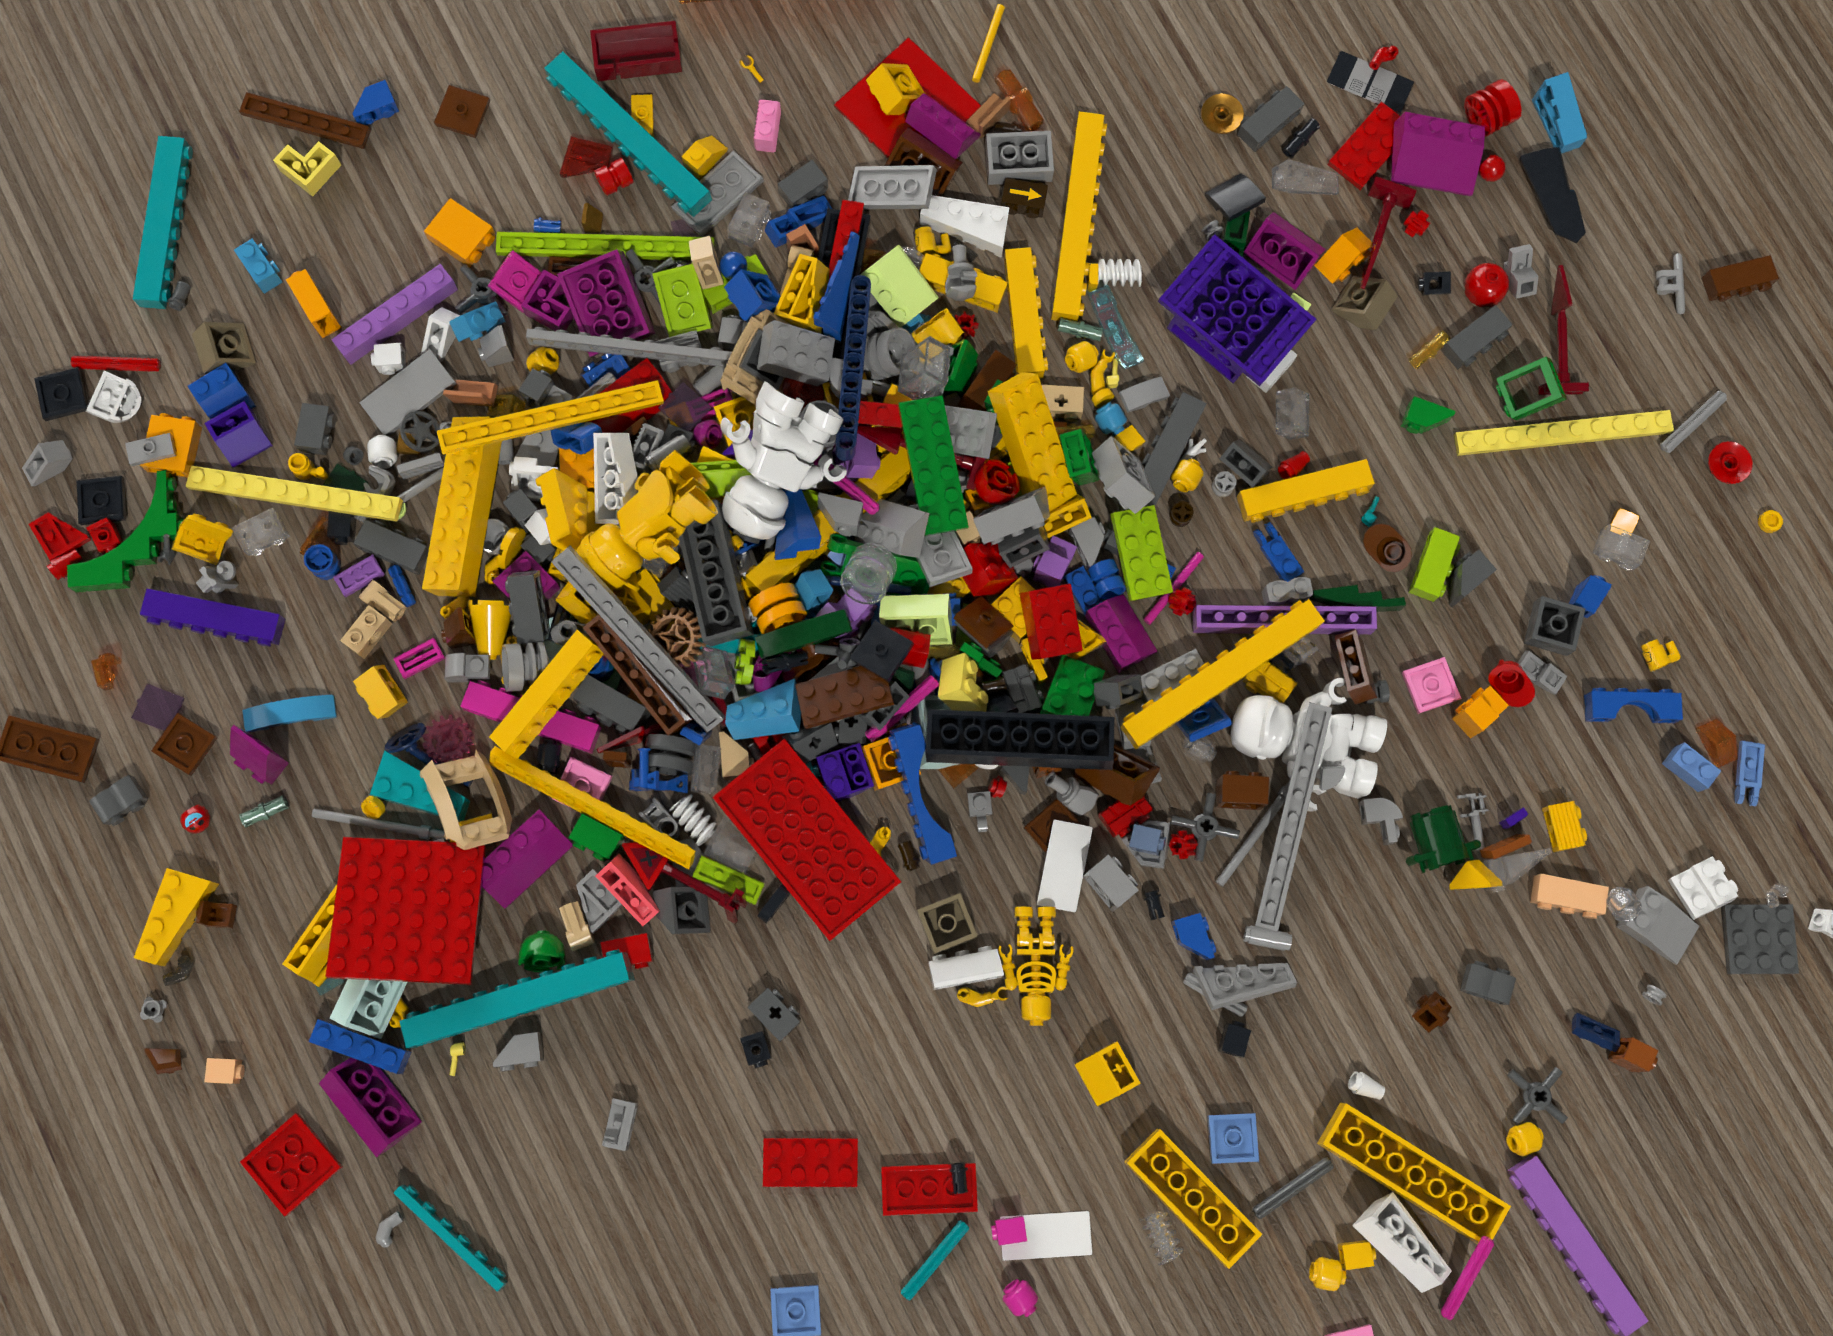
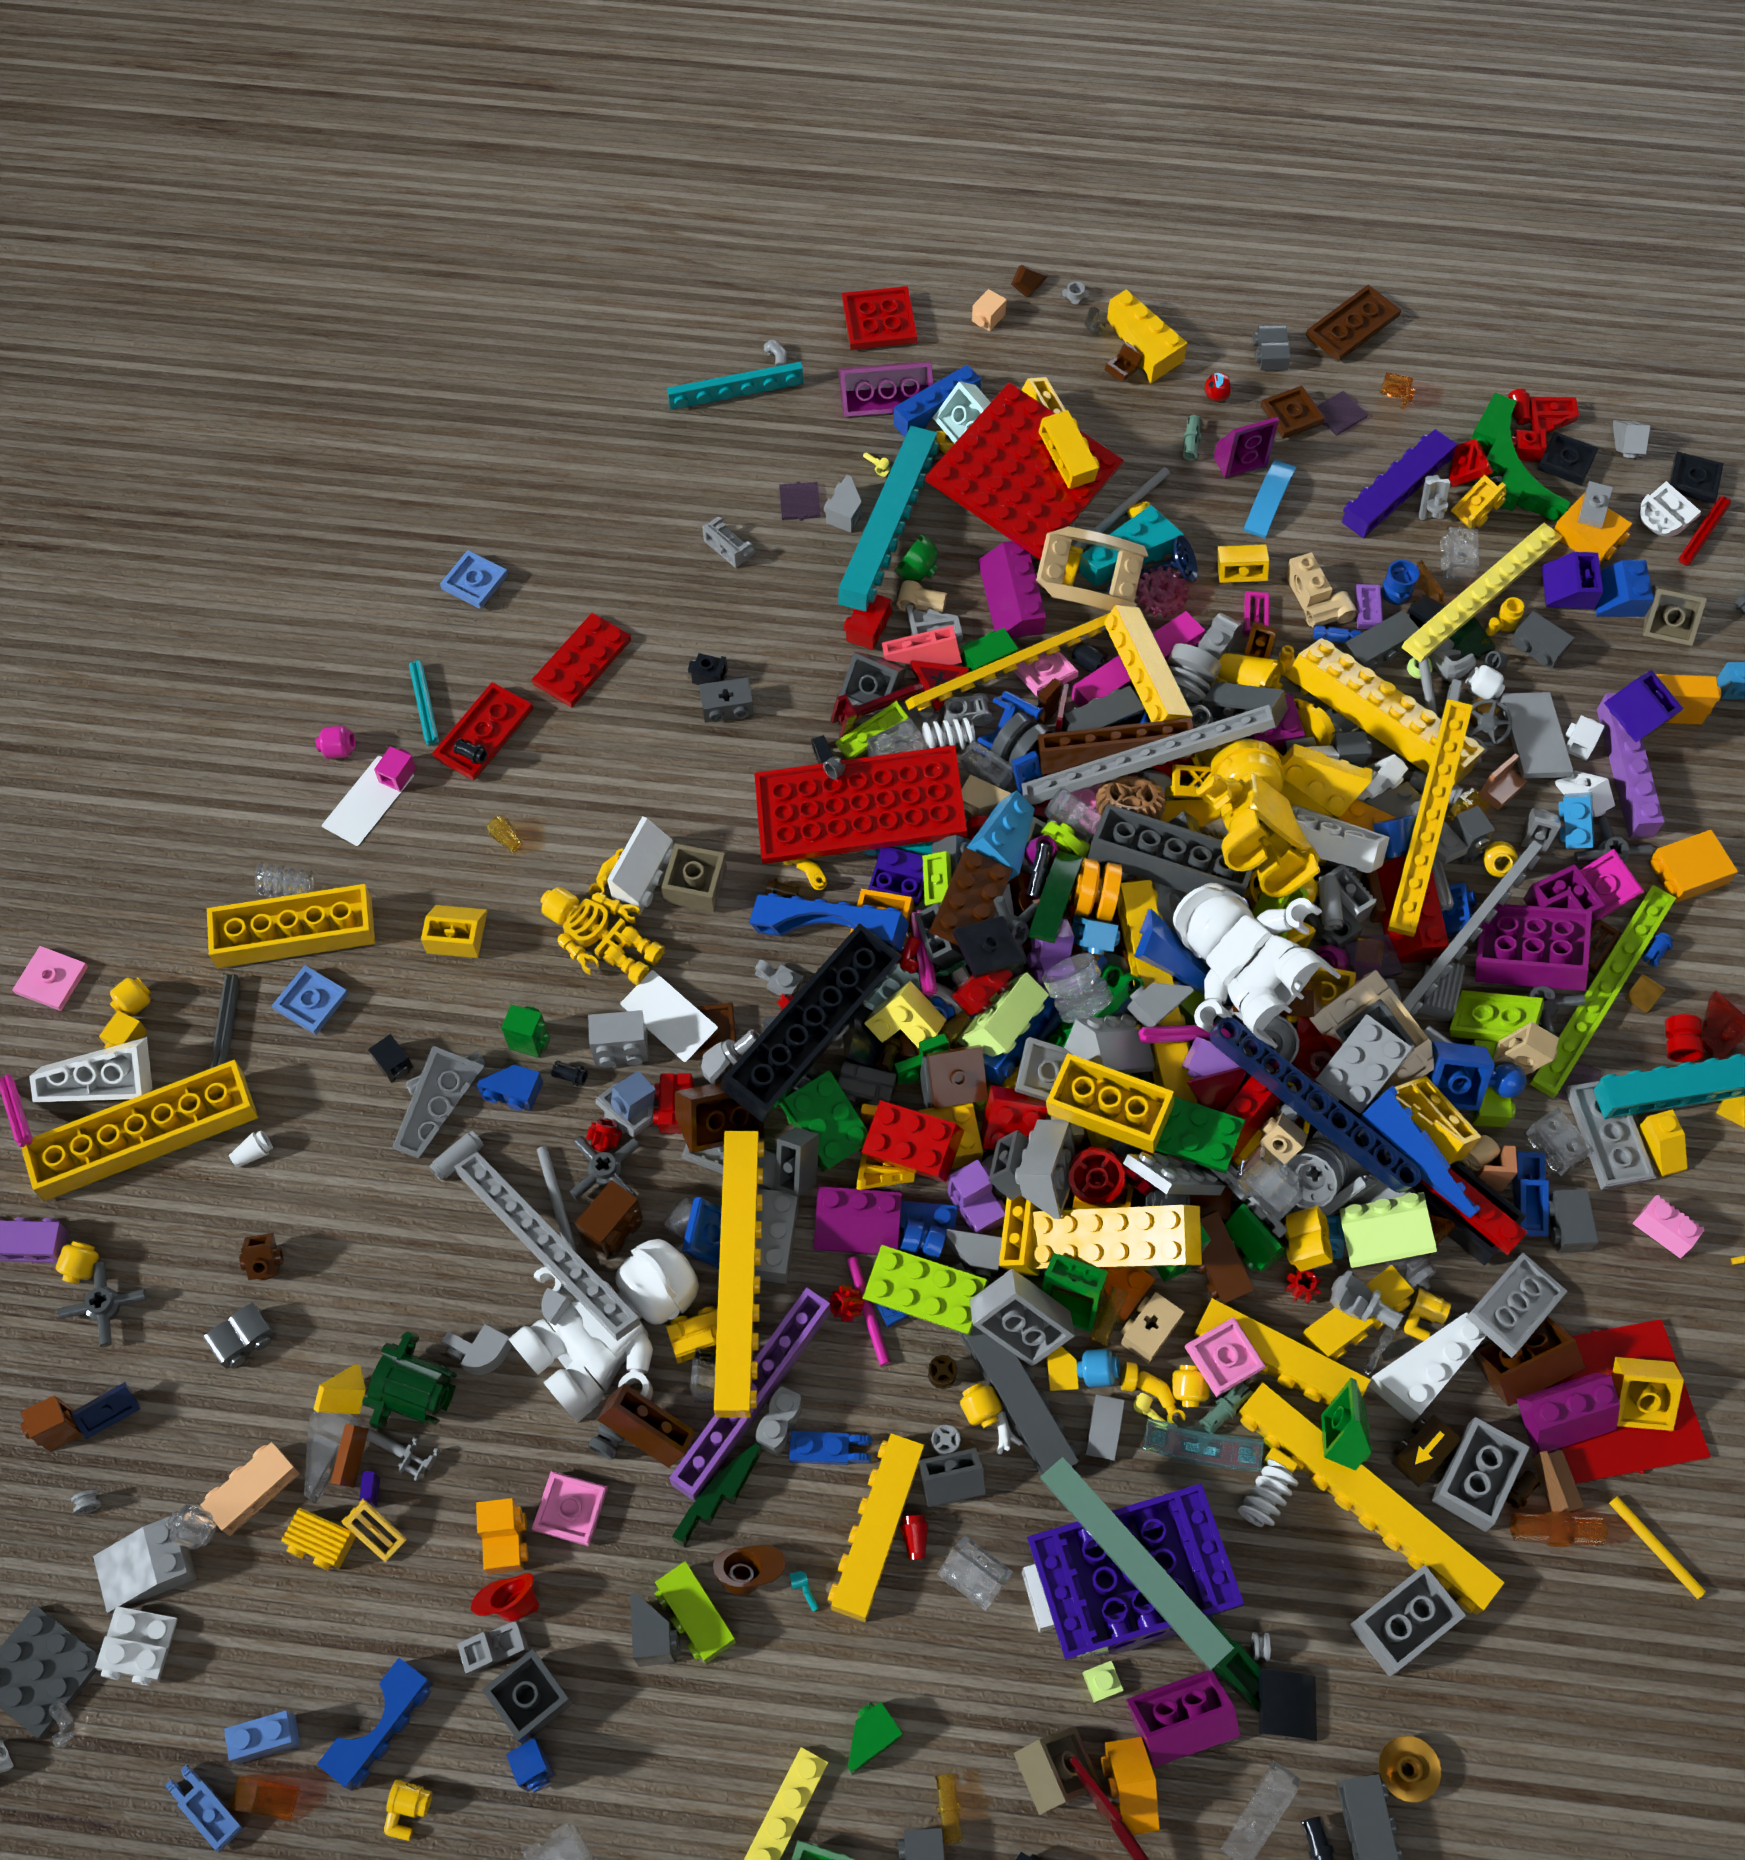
camera: 130 degrees right, 15 degrees down
(158, 571) = (1468, 463): none -> red wing
(349, 316) = (1643, 706): none -> dark purple slope
(371, 878) = (1069, 449): none -> yellow brick
(536, 1097) = (799, 501): none -> clear purple piece
(790, 876) = (834, 767): none -> dark grey hinge
(835, 737) = (936, 876): none -> lime plate
(886, 377) = (1282, 1137): none -> tan brick
(914, 716) = (908, 954): none -> red arm
(950, 492) = (1110, 1103): none -> yellow brick
(980, 259) = (1384, 1341): none -> clear piece
(1004, 1100) = (504, 833): none -> clear yellow cone
(1052, 243) = (1346, 1428): none -> green slope
(1054, 341) = (1225, 1357): none -> bright pink plate
(1139, 154) = (1407, 1620): none -> light grey brick
(1150, 953) = (525, 1030): none -> green brick
(1234, 310) = (1137, 1564): none -> sand green tile
(1531, 793) = (356, 1513): none -> yellow tile

